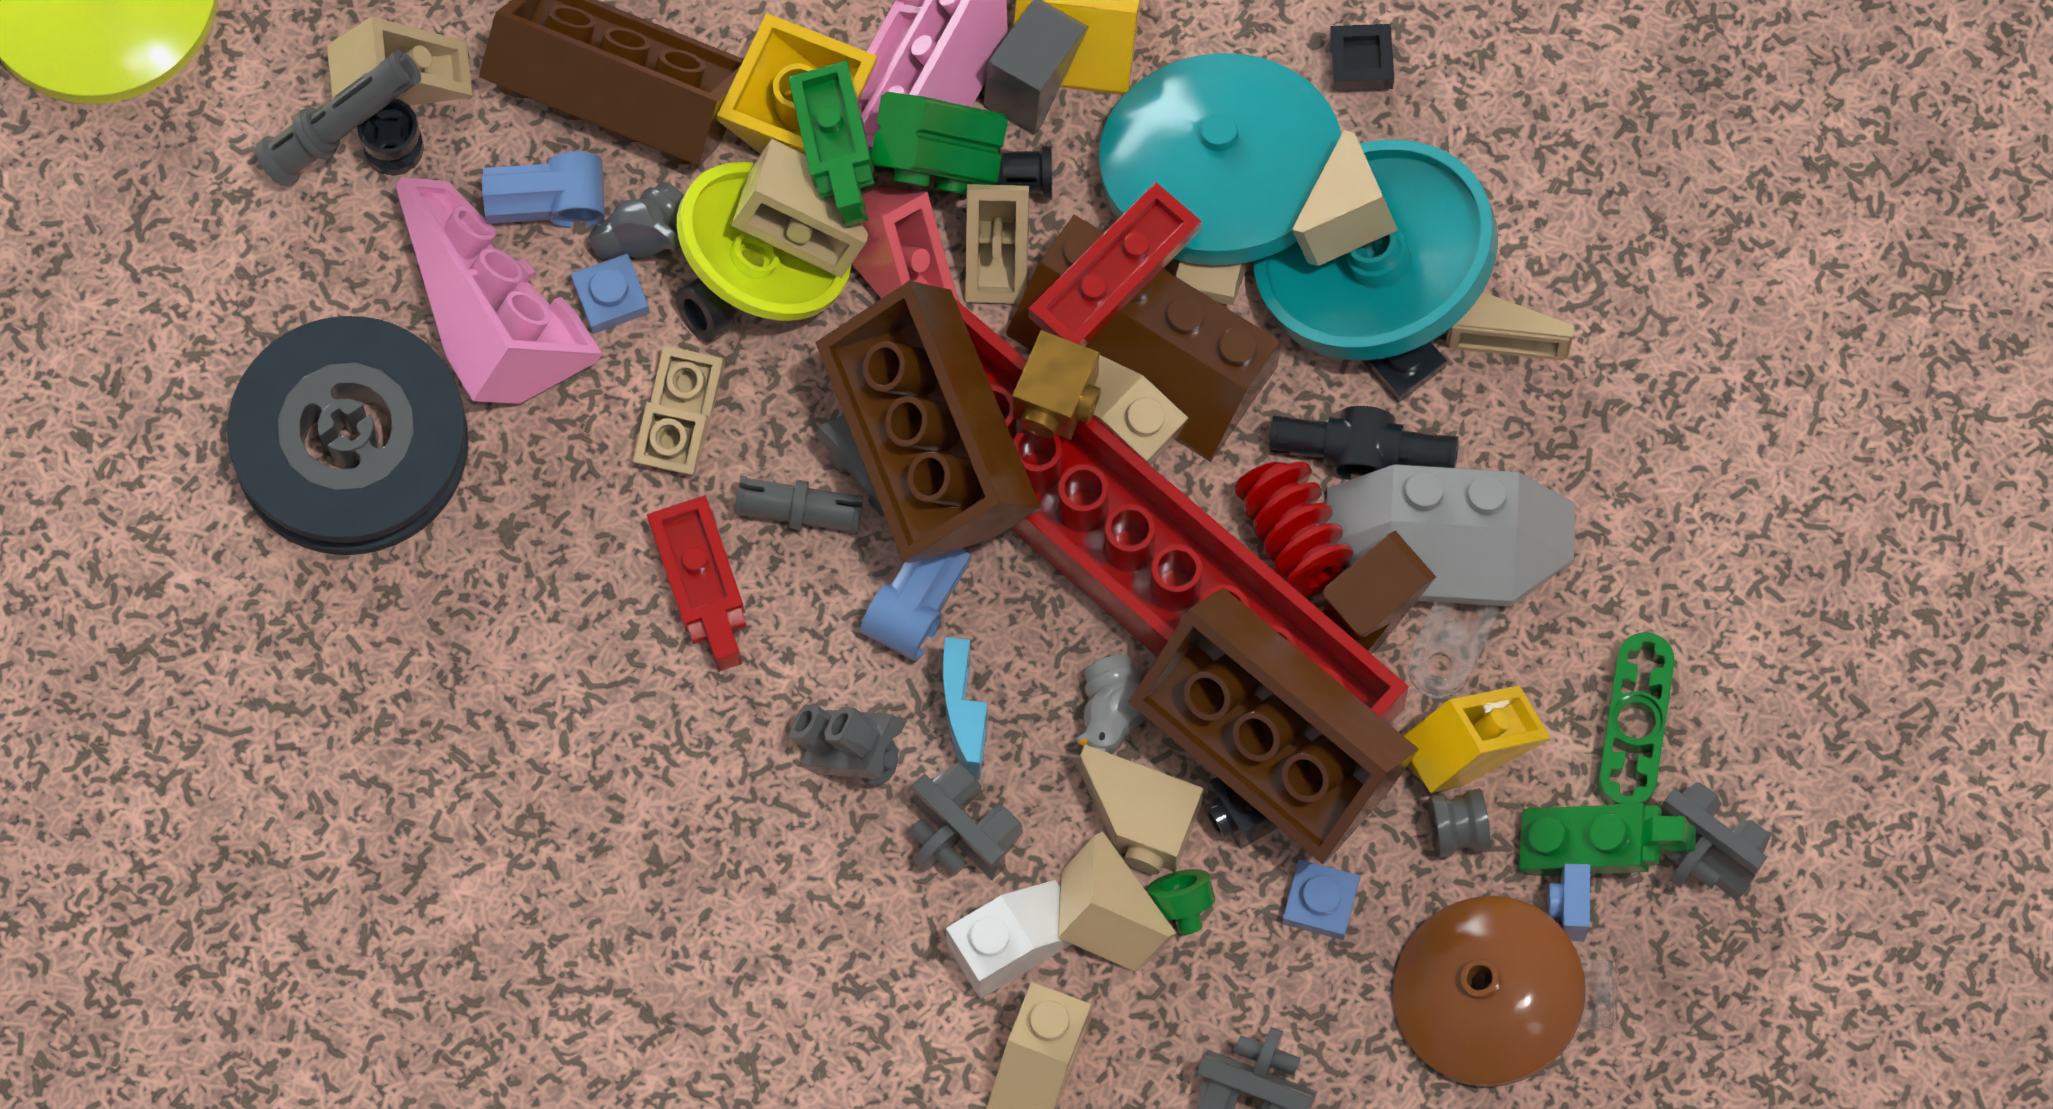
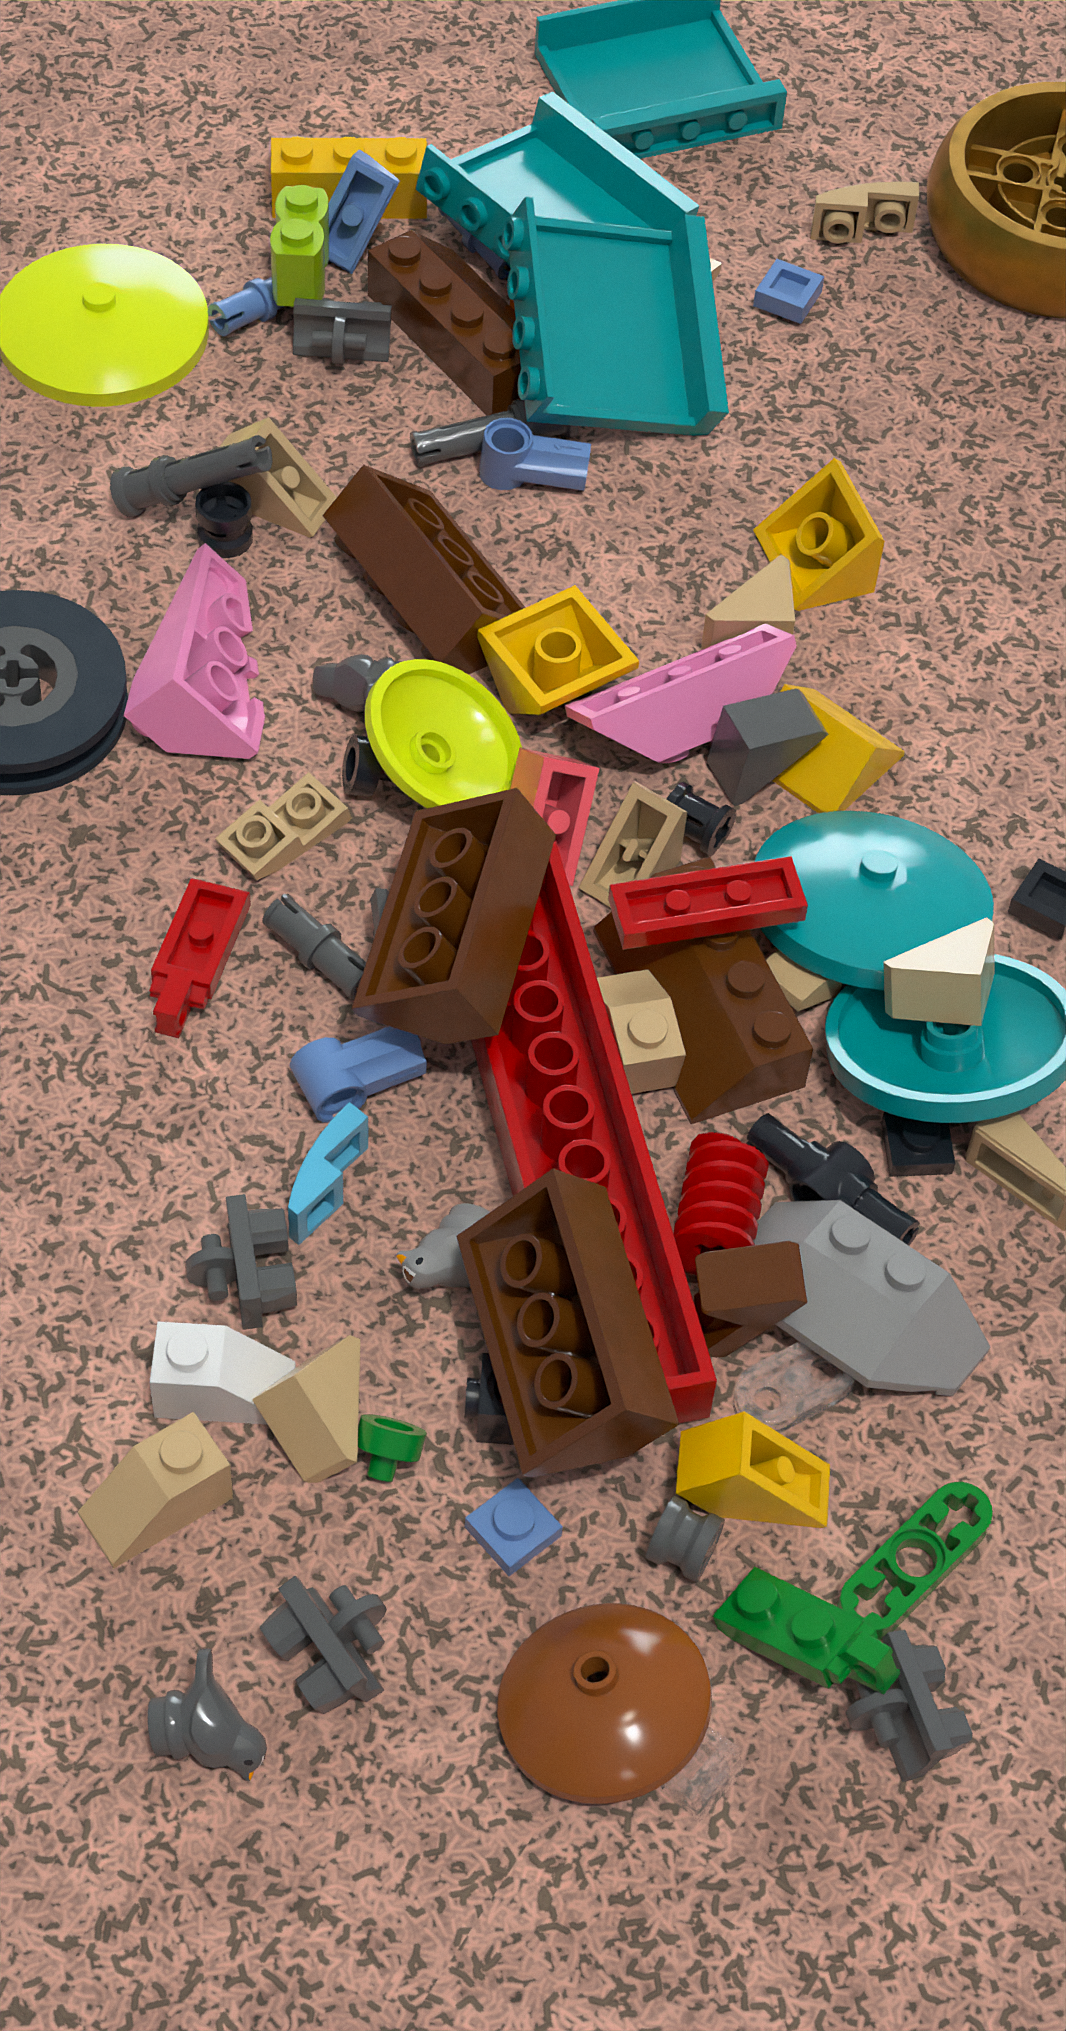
camera: 30 degrees right, 15 degrees down
(560, 191) = (317, 626): medium blue piece -> none
(610, 293) = (300, 719): medium blue plate -> none
(787, 212) = (486, 724): tan slope -> none
(834, 137) = (552, 685): green hinge -> none
(848, 743) = (207, 1139): dark grey hips -> none
(938, 140) = (636, 734): green brick -> none
(1057, 387) = (586, 955): pearl gold brick -> none
(1141, 809) = (412, 1349): tan slope -> none
(1570, 901) = (738, 1672): medium blue plate -> none

